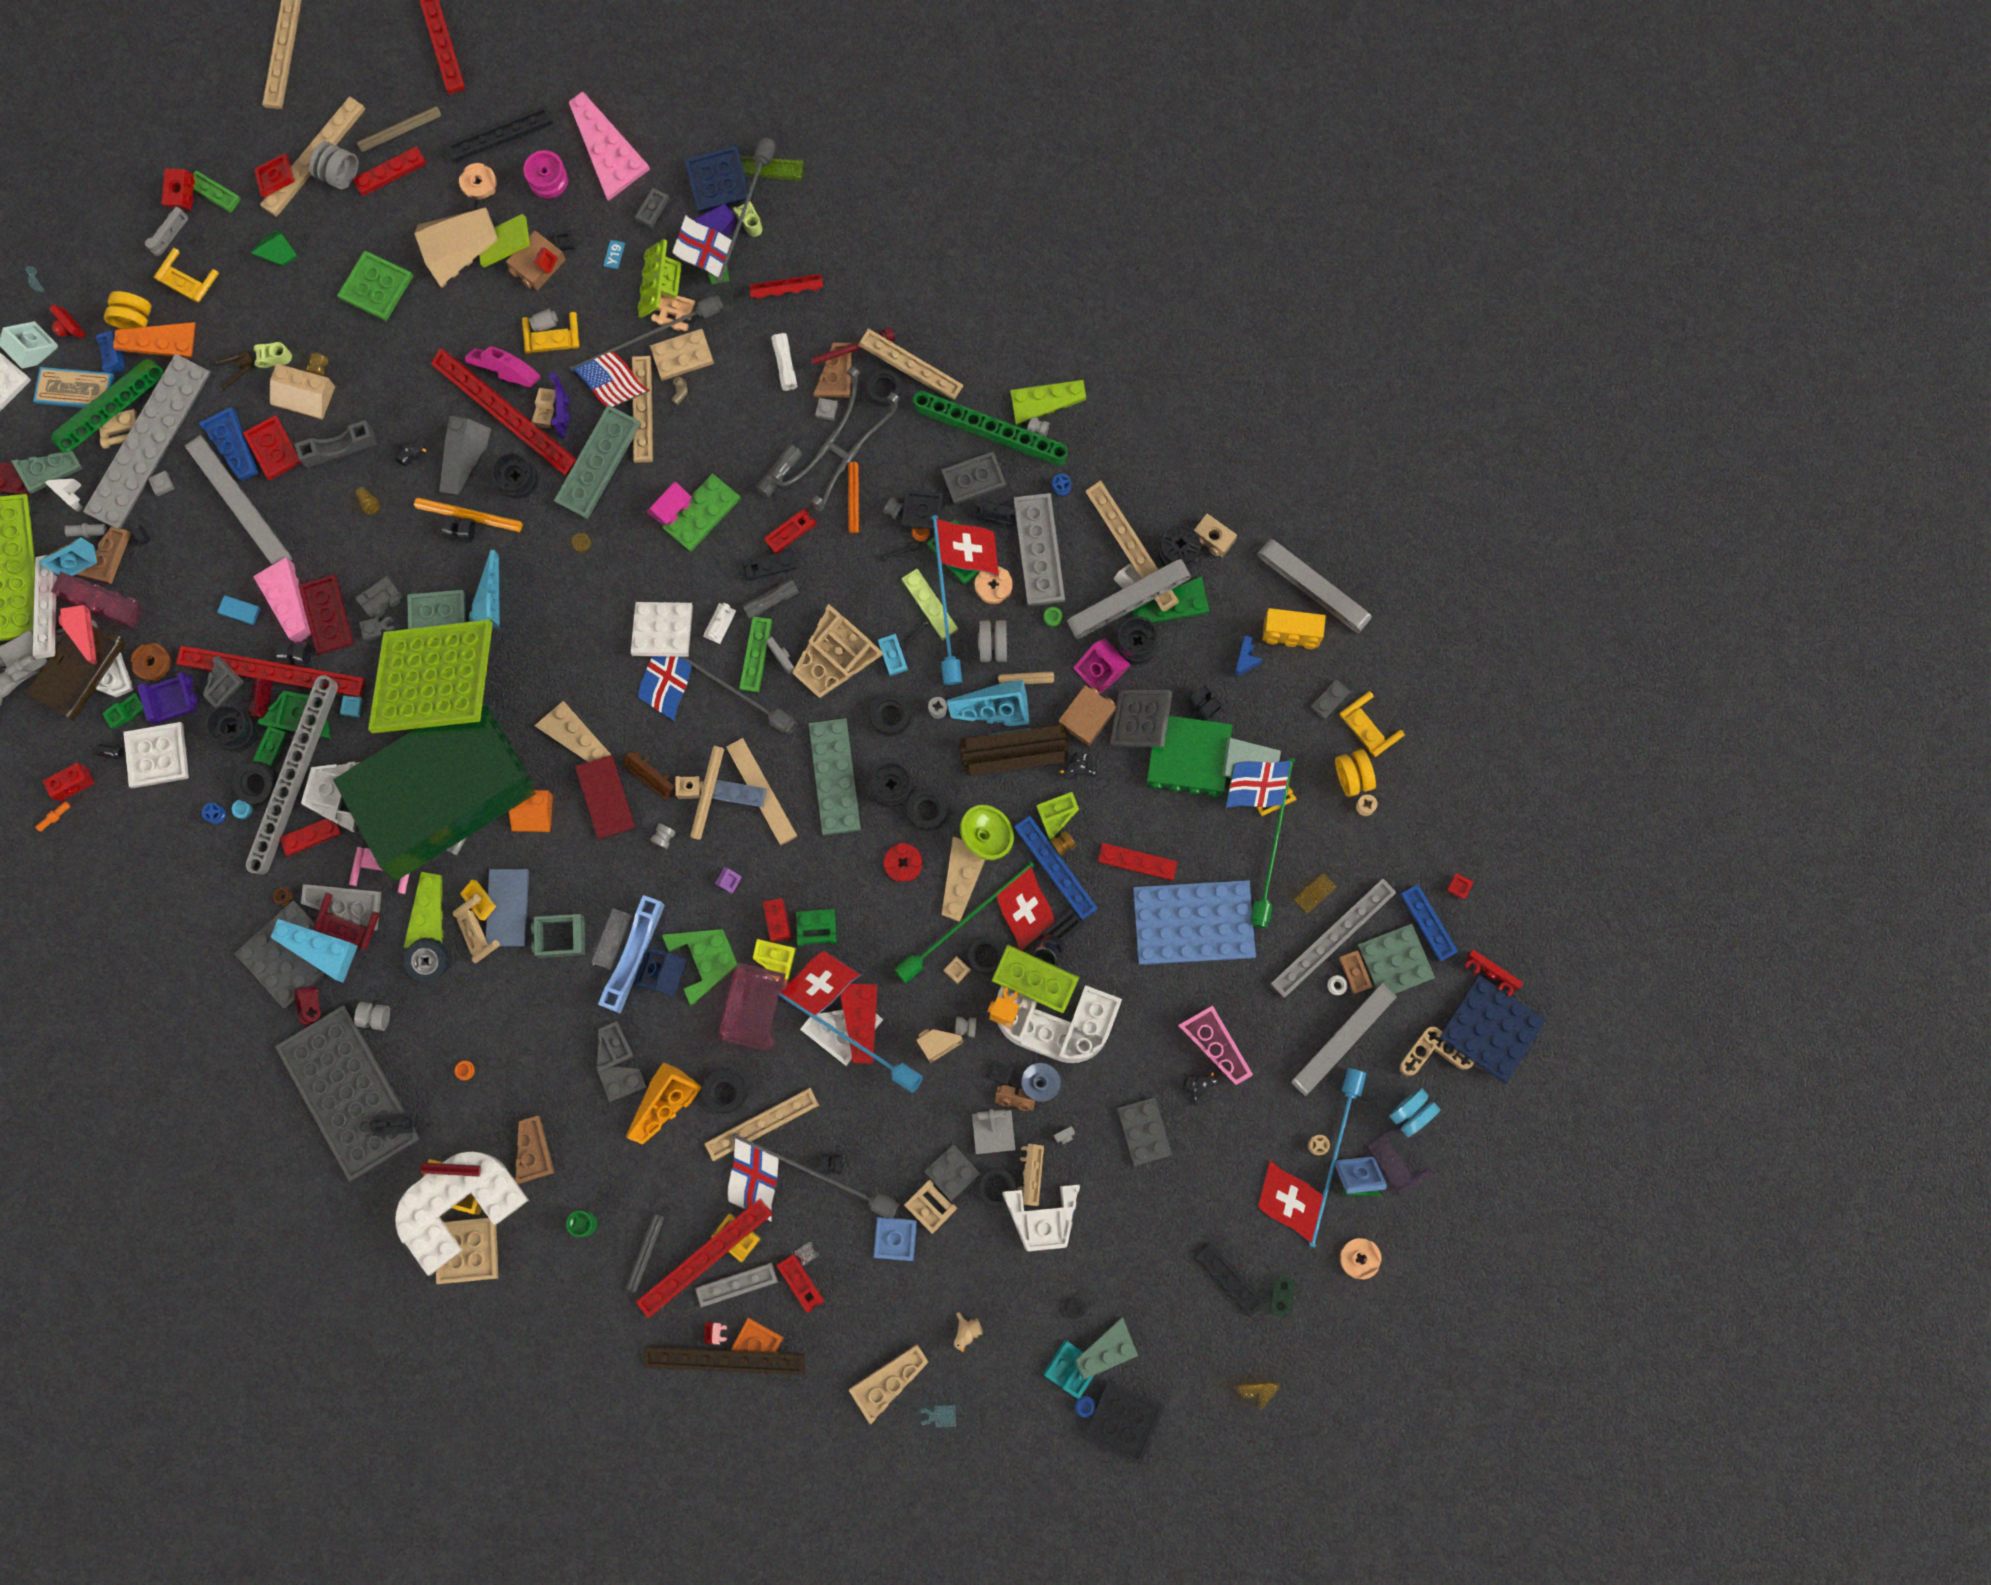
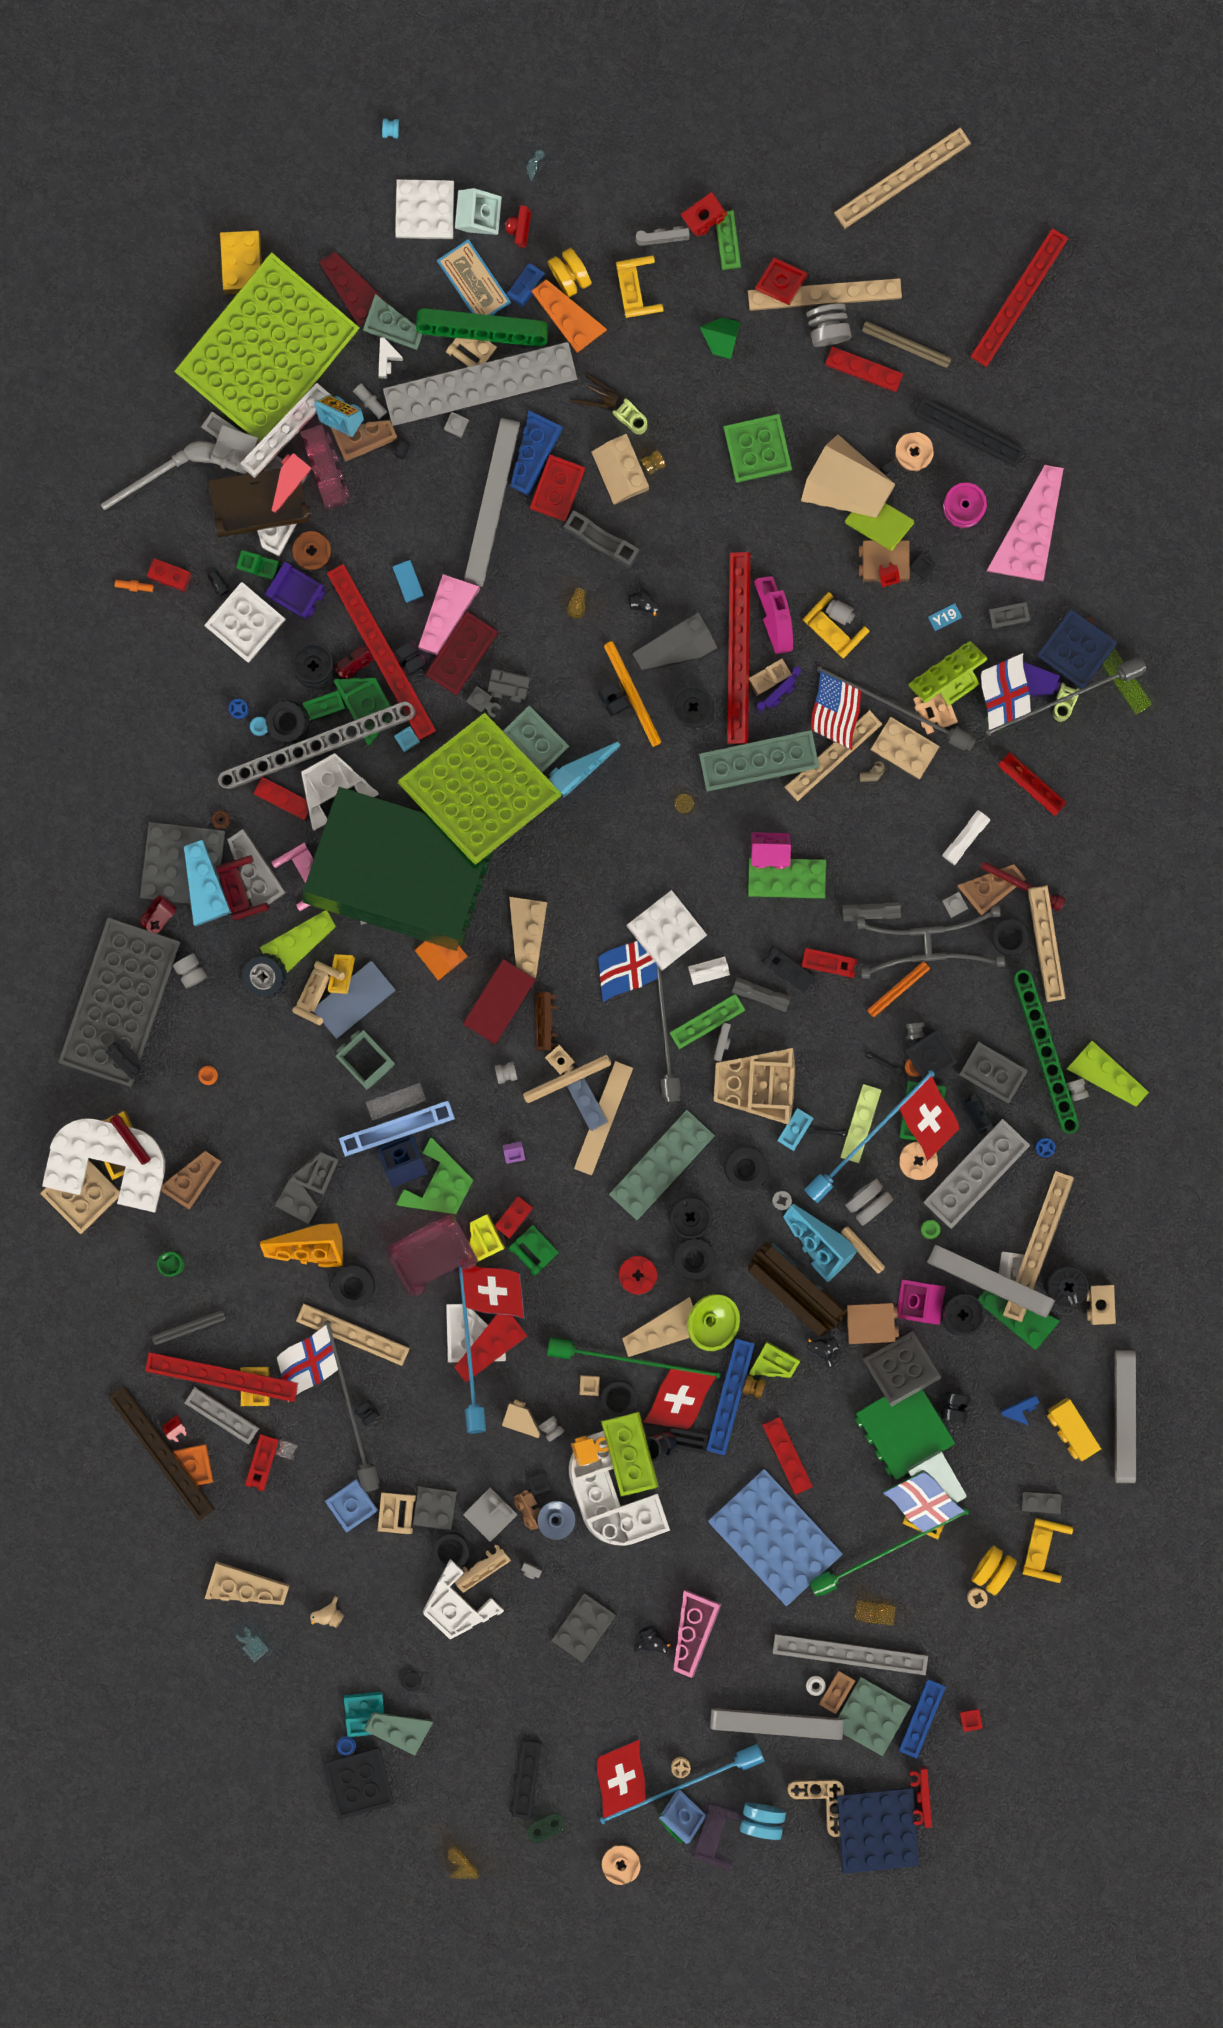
camera: 50 degrees right, 10 degrees up
(221, 683) = (340, 623): dark grey wing -> none

